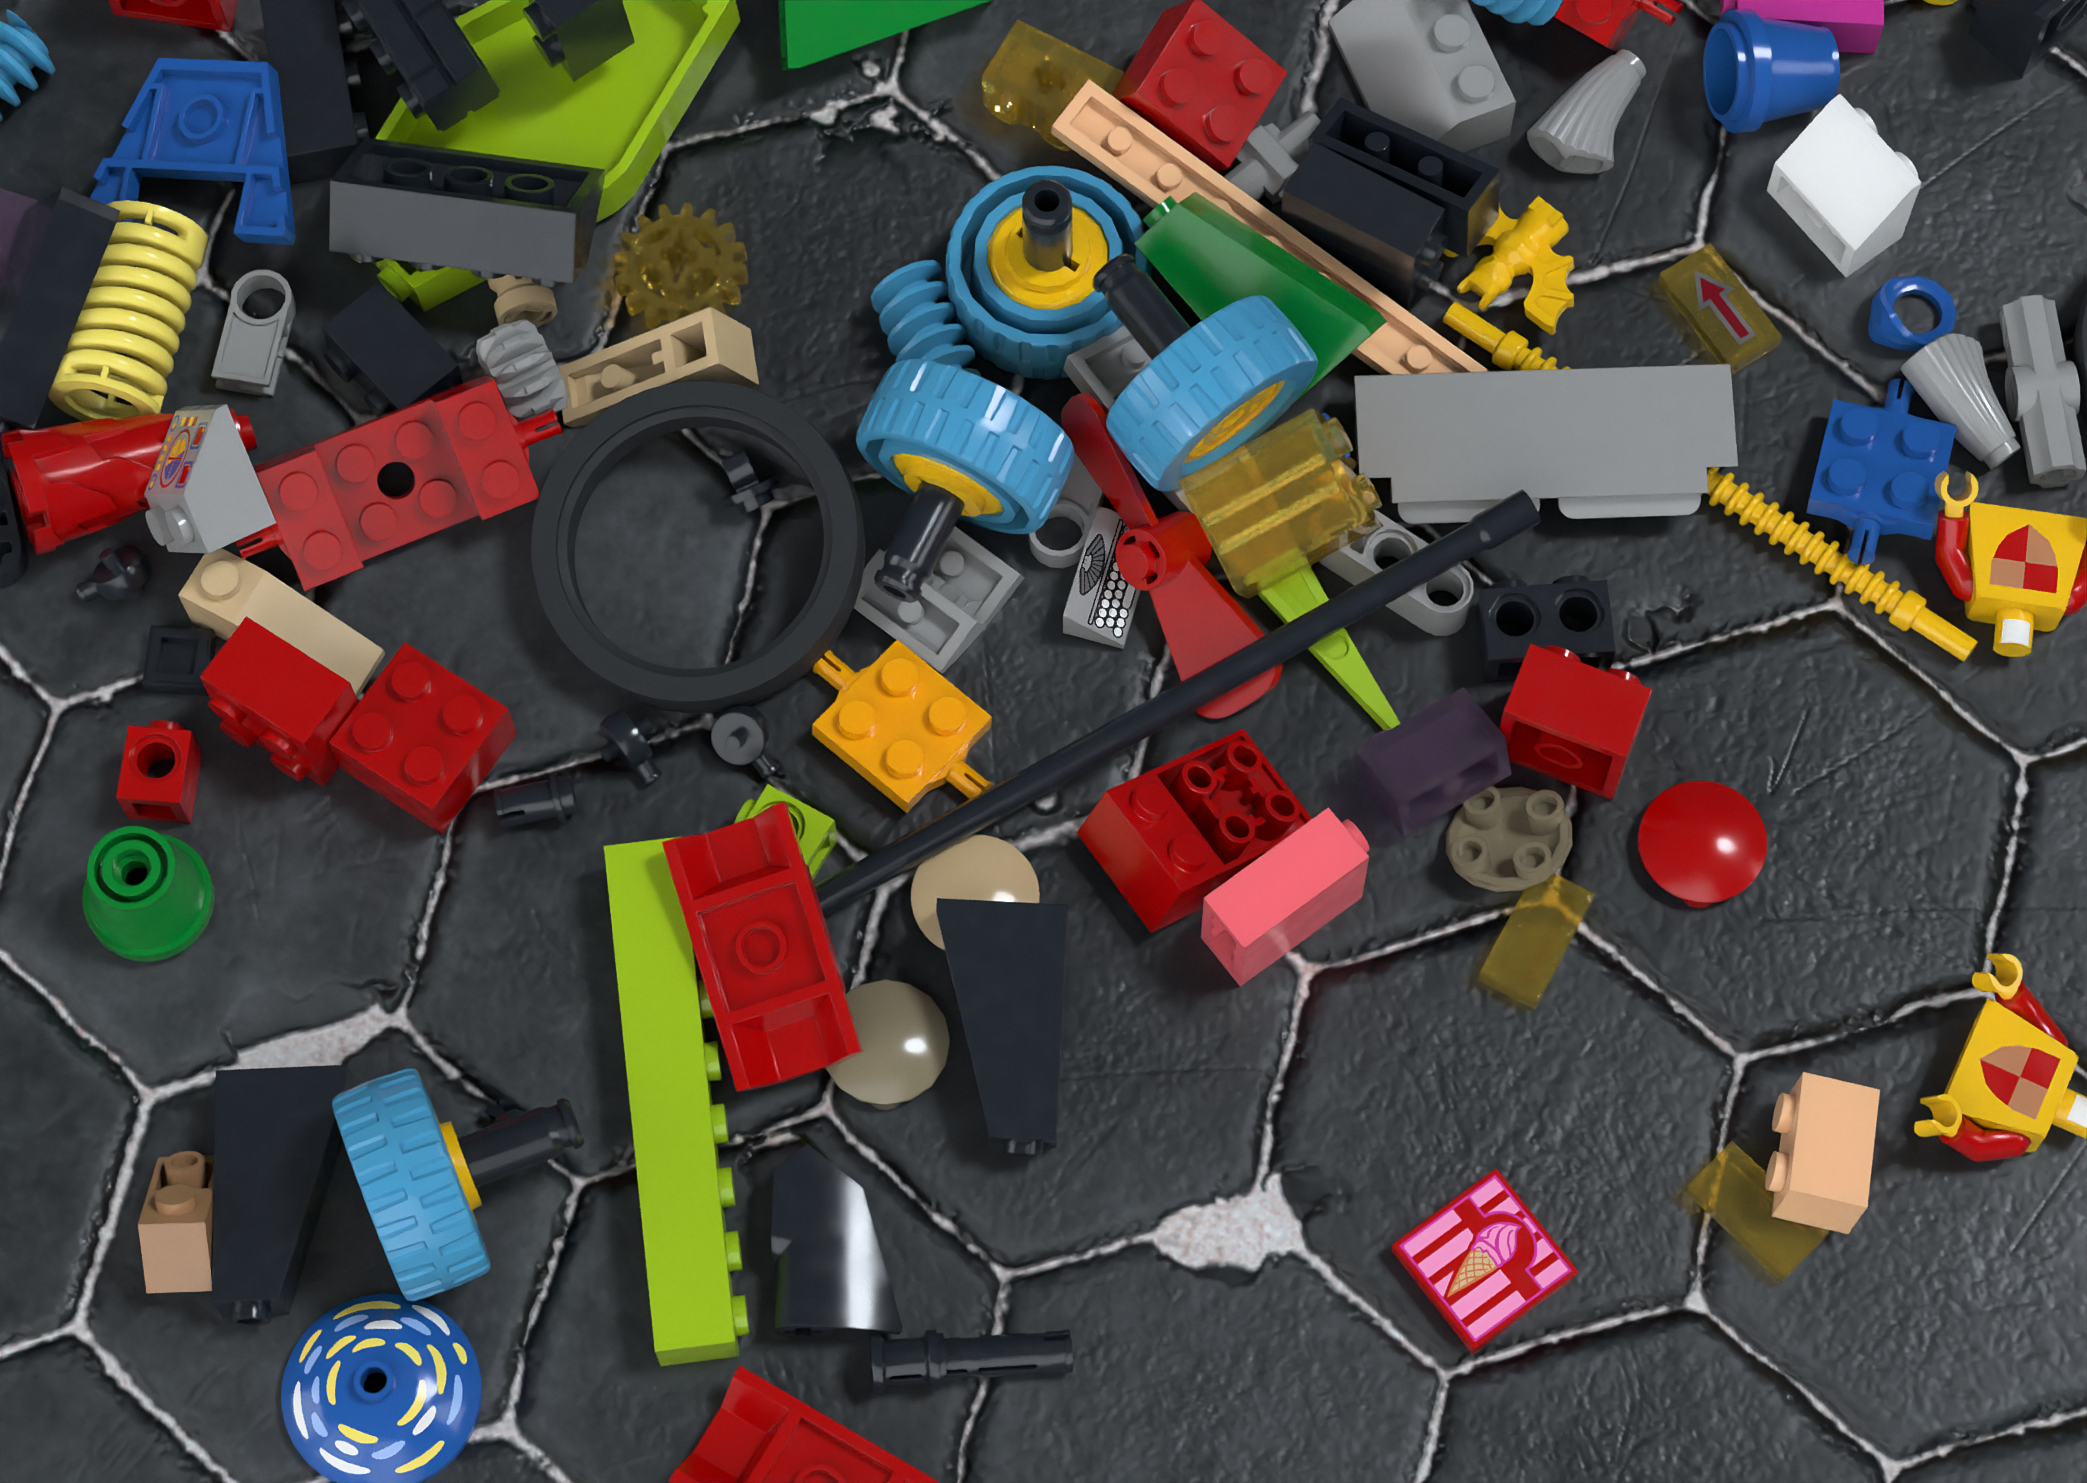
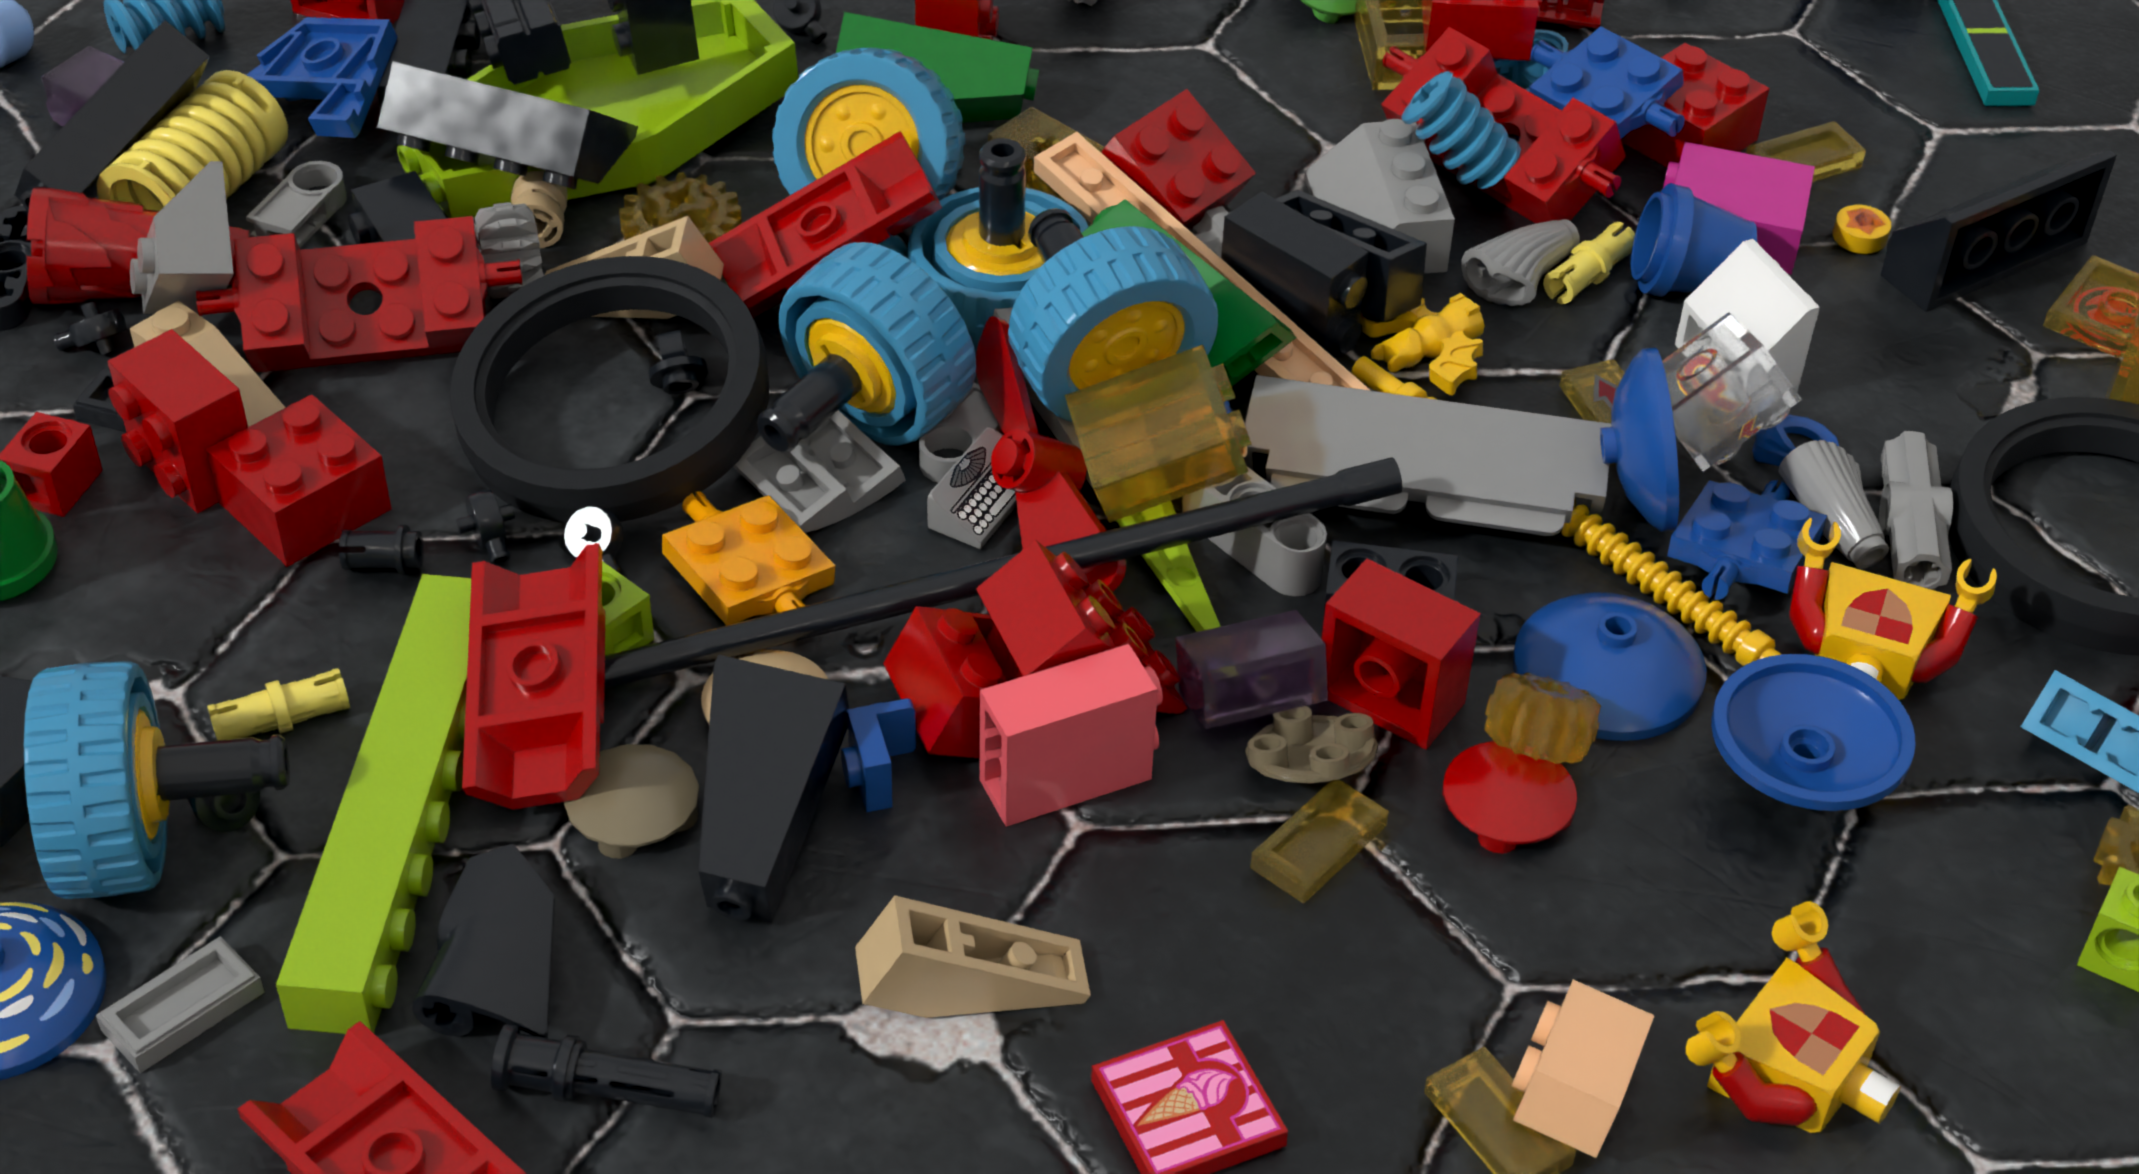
camera: 10 degrees right, 25 degrees down
(512, 1019) = (279, 706): none -> light yellow pin
(557, 1368) = (180, 1004): none -> light grey tile
(856, 277) = (851, 204): none -> red piece
(869, 147) = (858, 102): none -> dark azure wheel
(1095, 953) = (872, 737): none -> blue bracket
(1256, 1166) = (962, 963): none -> tan slope
(1265, 778) = (1056, 617): none -> red slope
(1661, 98) = (1589, 263): none -> light yellow pin
(1721, 760) = (1542, 718): none -> clear yellow gear
(1764, 690) = (1623, 654): none -> blue dish
(1766, 396) = (1645, 441): none -> blue dish
(1825, 290) = (1724, 391): none -> clear slope
(1987, 686) = (1813, 732): none -> blue dish

